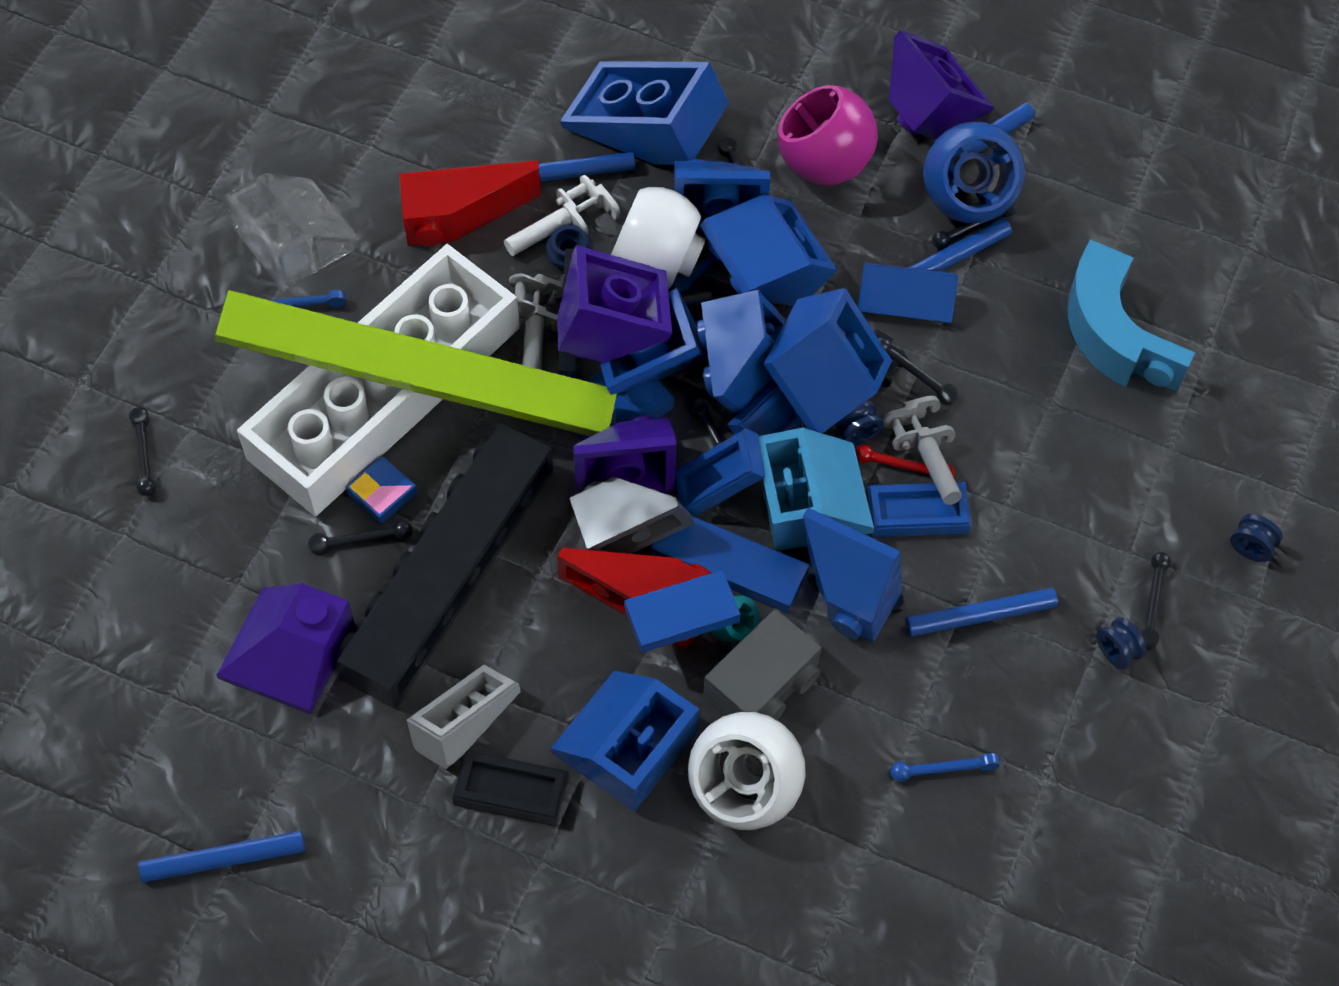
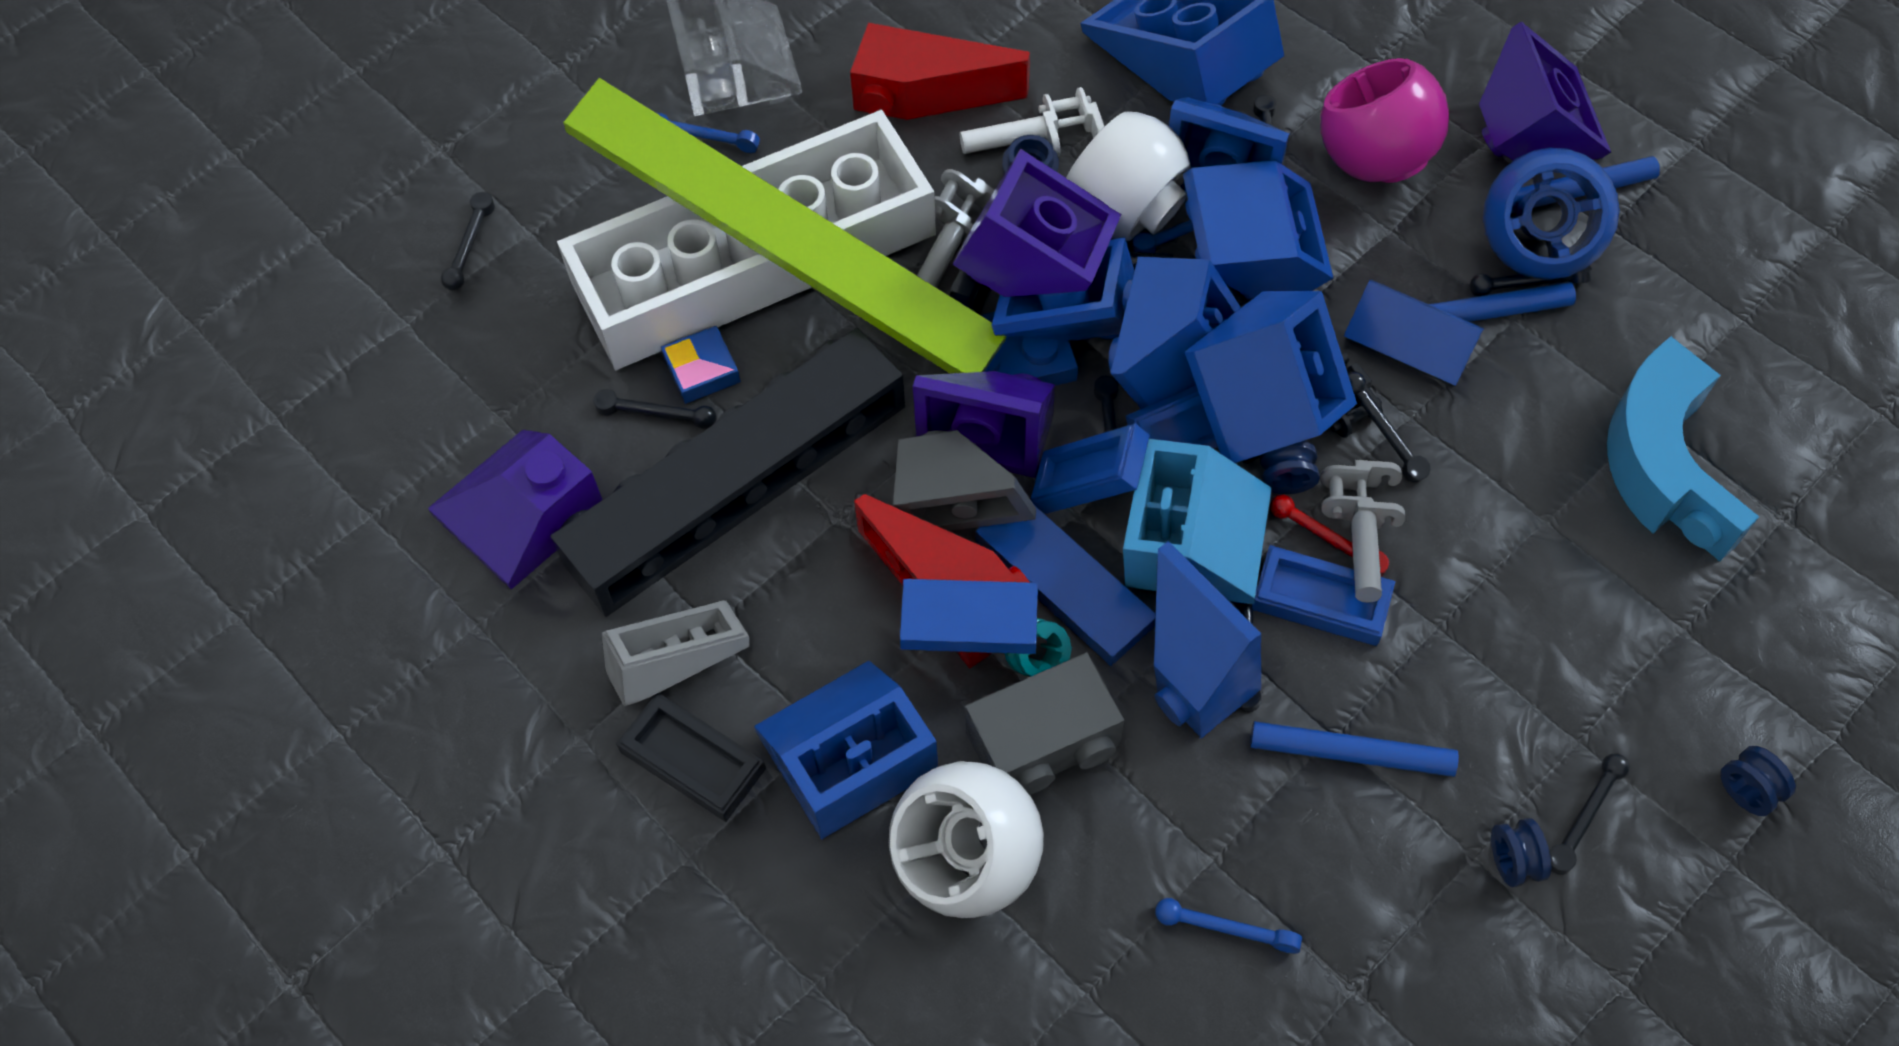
camera: 25 degrees right, 0 degrees up
(221, 856) = (337, 715): blue bar -> none
(586, 166) = (1090, 80): blue bar -> none

